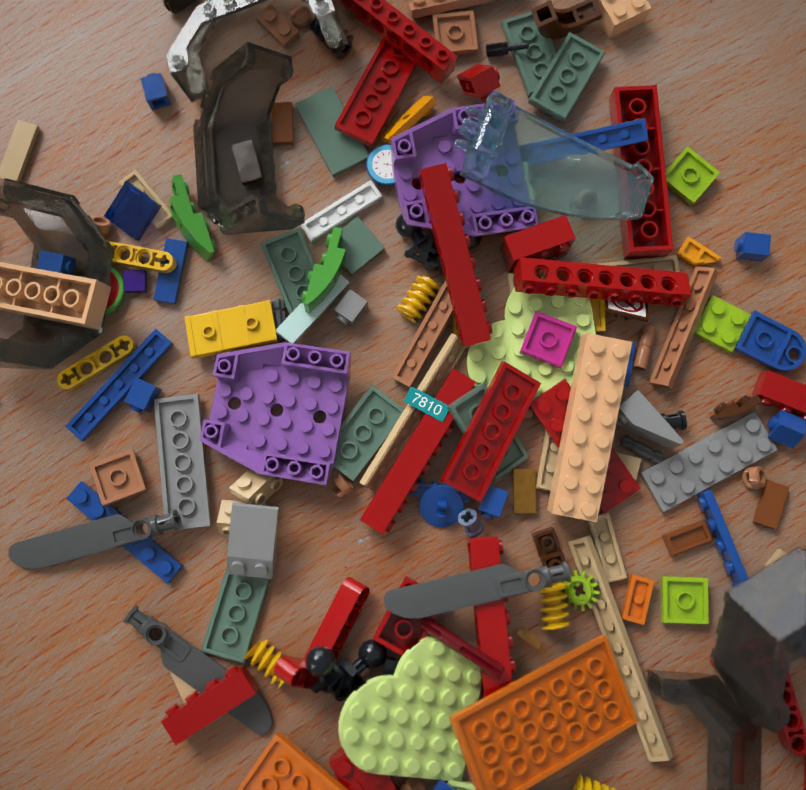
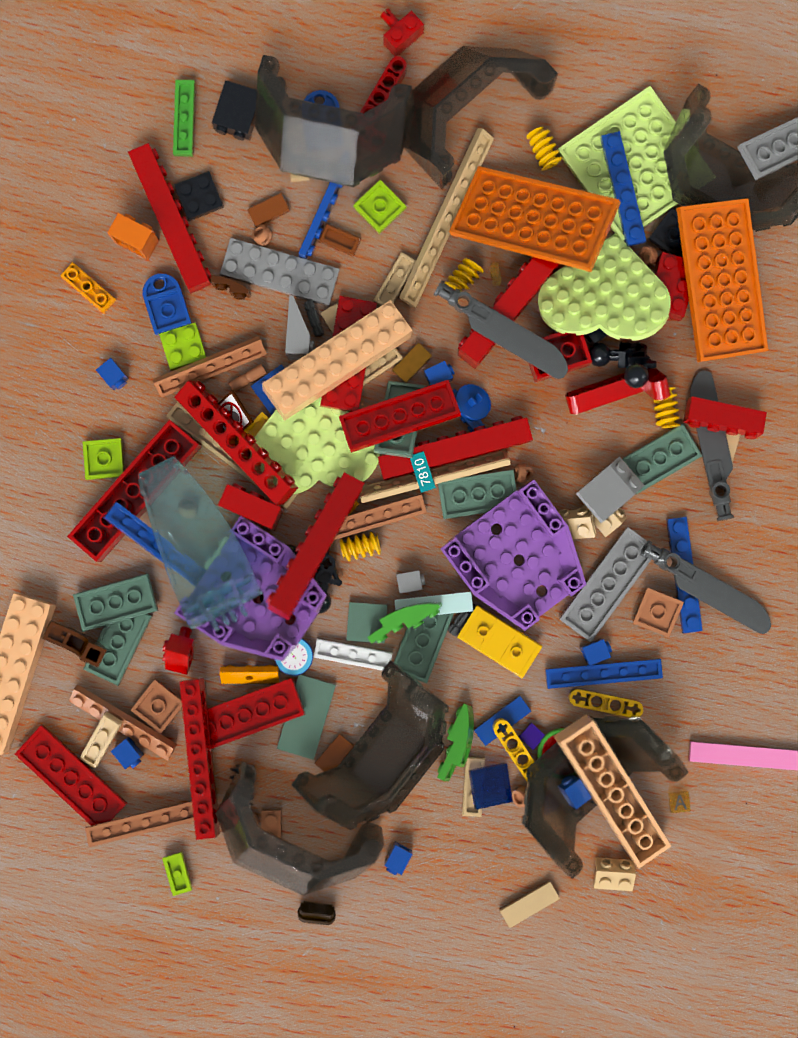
camera: 140 degrees left, 5 degrees up
(247, 162) = (384, 747): dark brown tile -> none
(462, 647) = (543, 304): dark red axle -> none
(471, 523) = (465, 374): sand blue bush -> none
(502, 48) = (136, 663): black axle -> none
(548, 339) = (305, 439): dark pink tile -> none
(548, 547) = (432, 313): reddish brown slope -> none
(588, 588) = (441, 265): lime gear -> none
(637, 599) = (407, 234): orange plate -> none
(676, 420) = (277, 316): black bush -> none
(696, 254) = (152, 405): light orange tile -> none
(786, 428) = (213, 244): blue brick -> none

